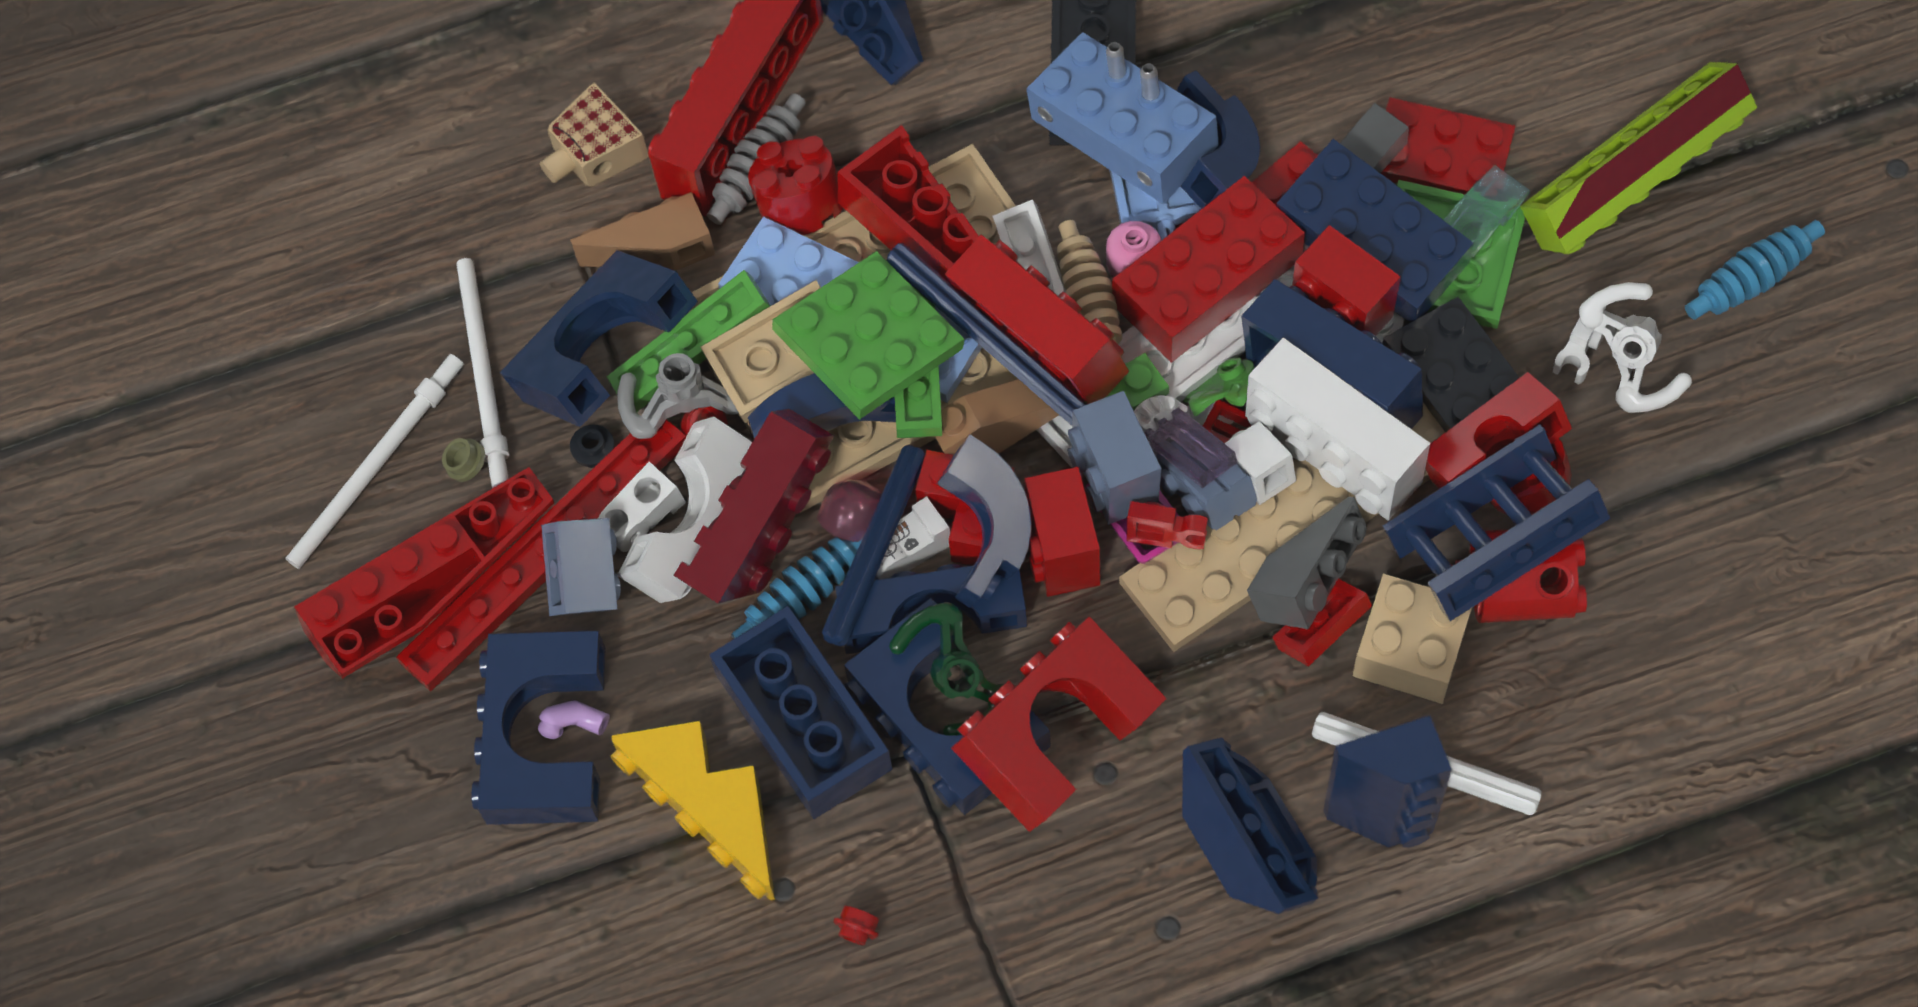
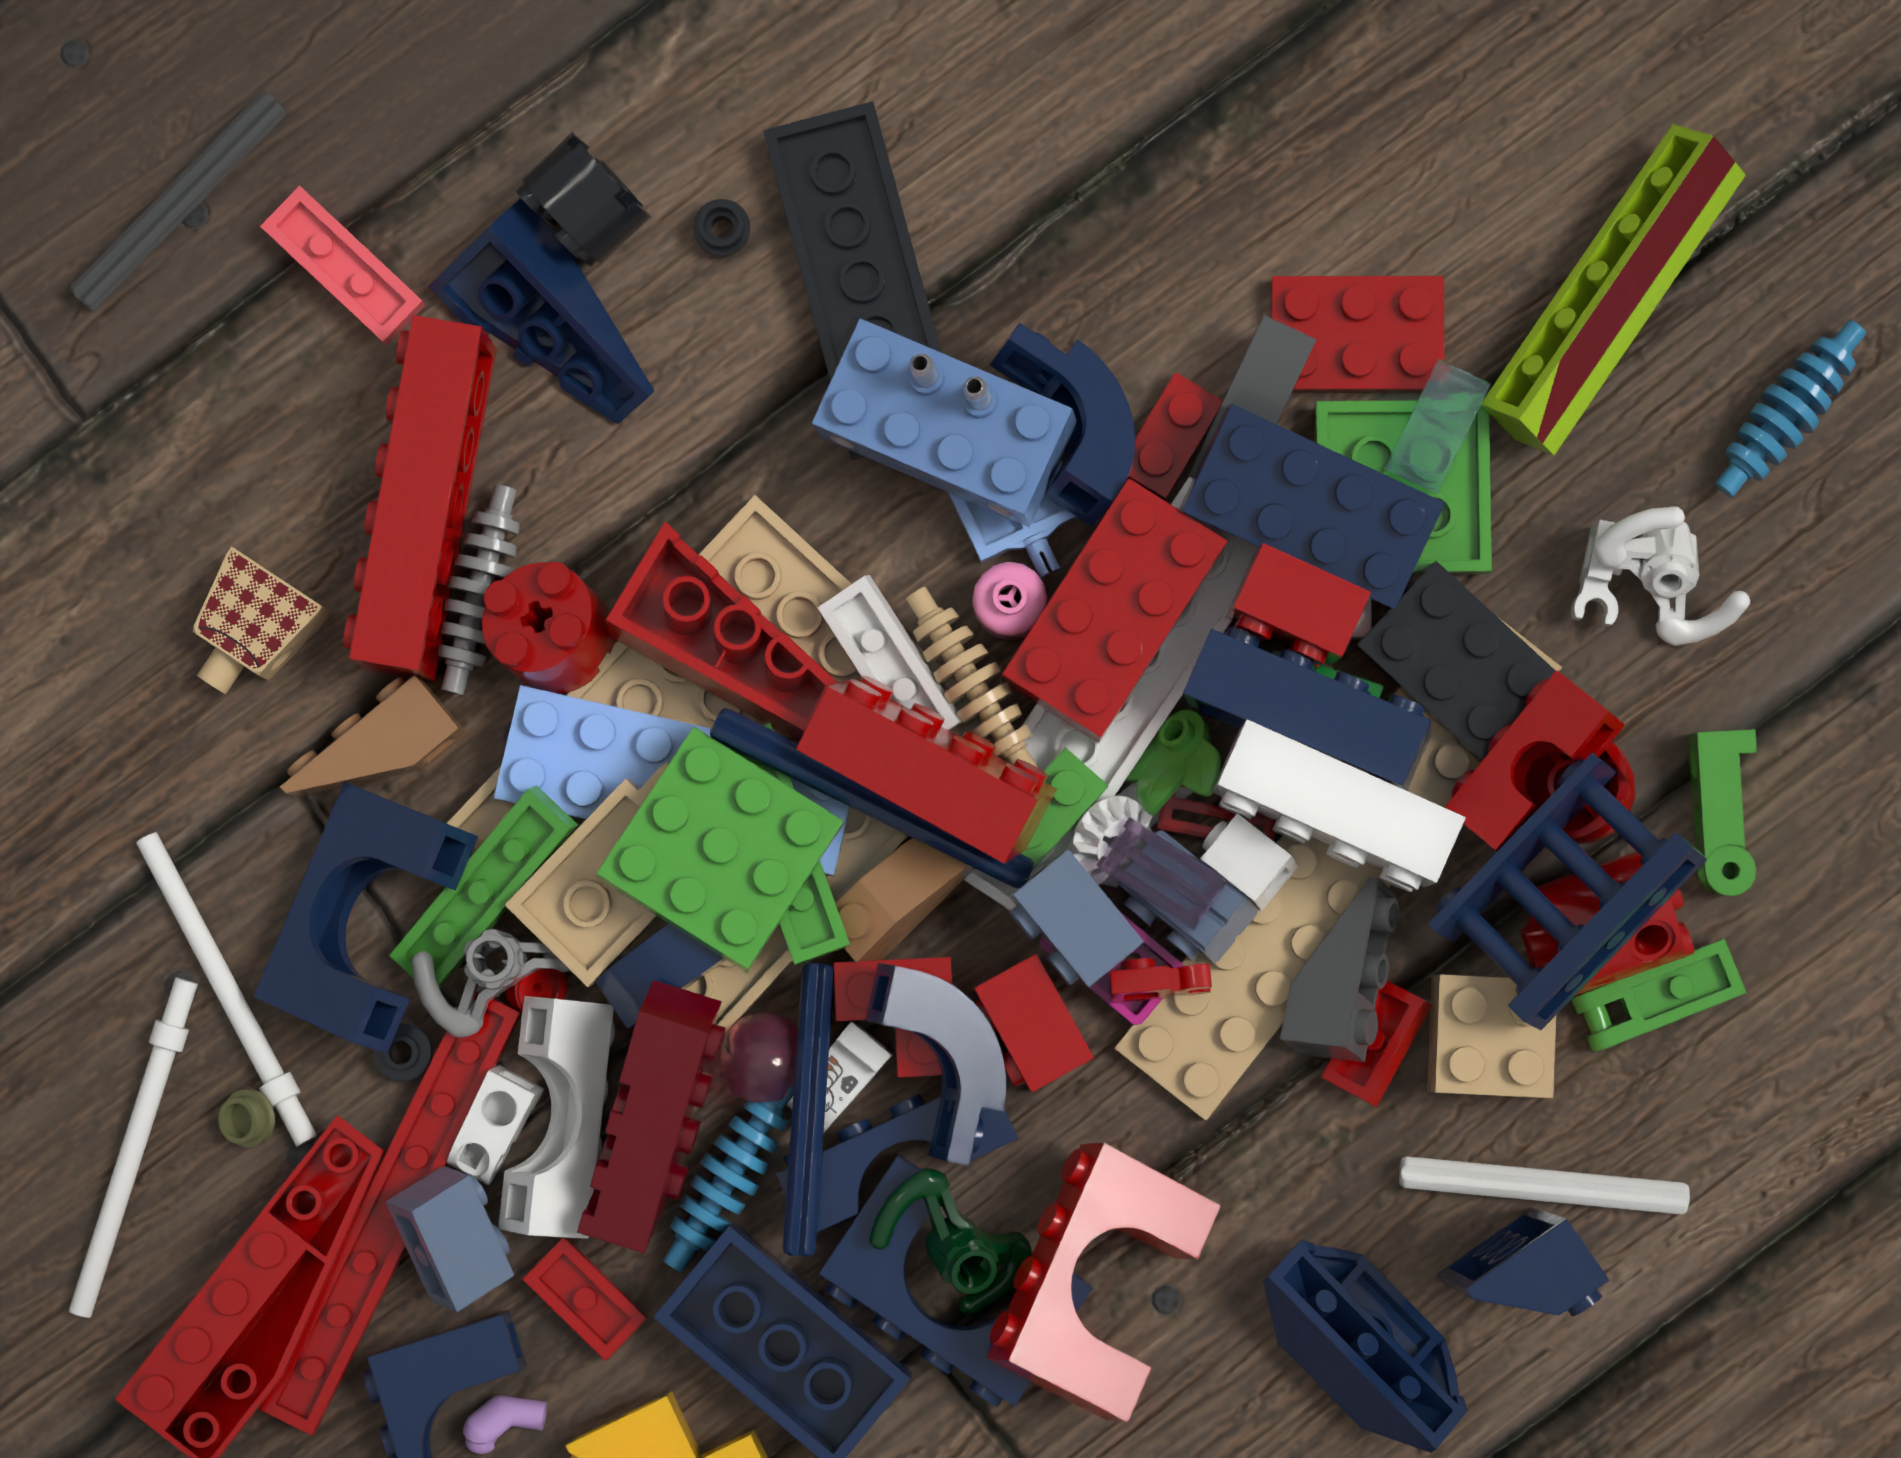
camera: 15 degrees left, 20 degrees up
(664, 647) = (585, 1298): none -> red plate
(1553, 647) = (1661, 995): none -> bright green plate
(1627, 562) = (1719, 809): none -> bright green leg

